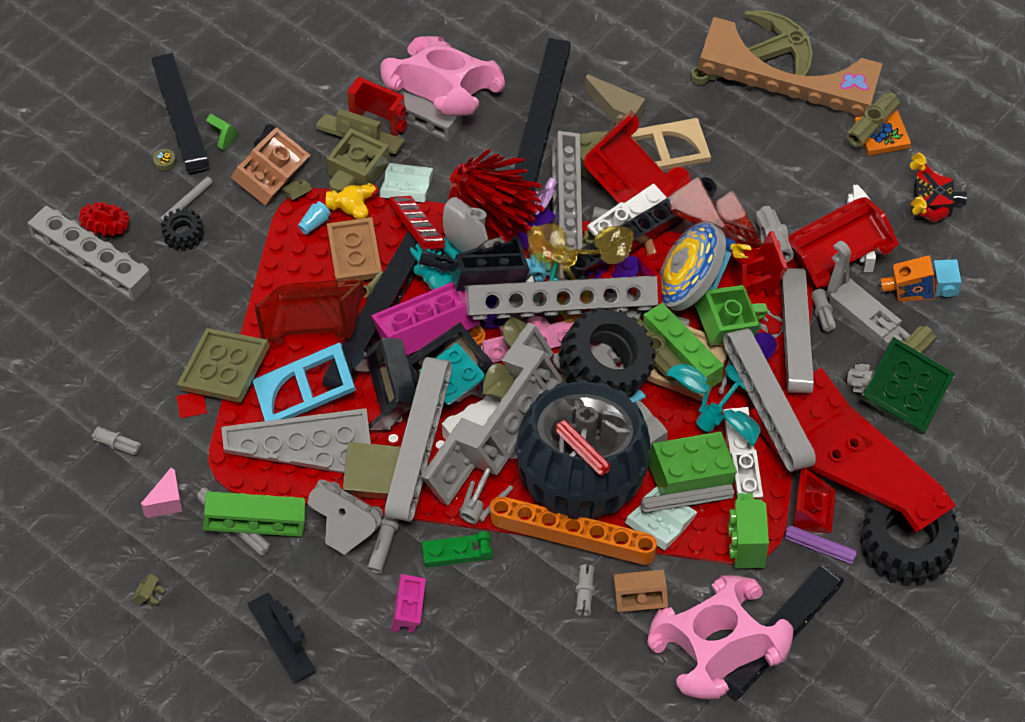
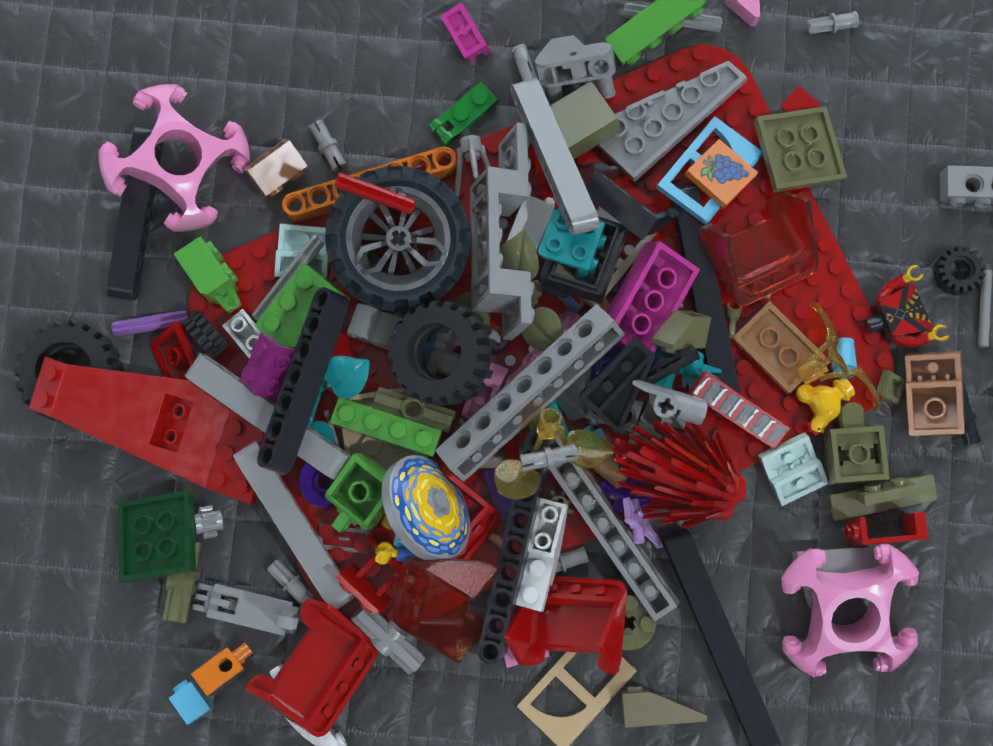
camera: 145 degrees right, 25 degrees up
(249, 222) = (901, 314): none -> torso
(299, 371) = (721, 173): none -> orange tile
(342, 212) = (816, 368): none -> clear yellow plant
(418, 282) = (683, 330): none -> olive slope
(581, 239) = (548, 457): none -> light grey pin
(715, 385) = (303, 381): none -> black beam
(744, 415) = (266, 367): none -> magenta bracket
(780, 492) = (205, 334): none -> black tyre

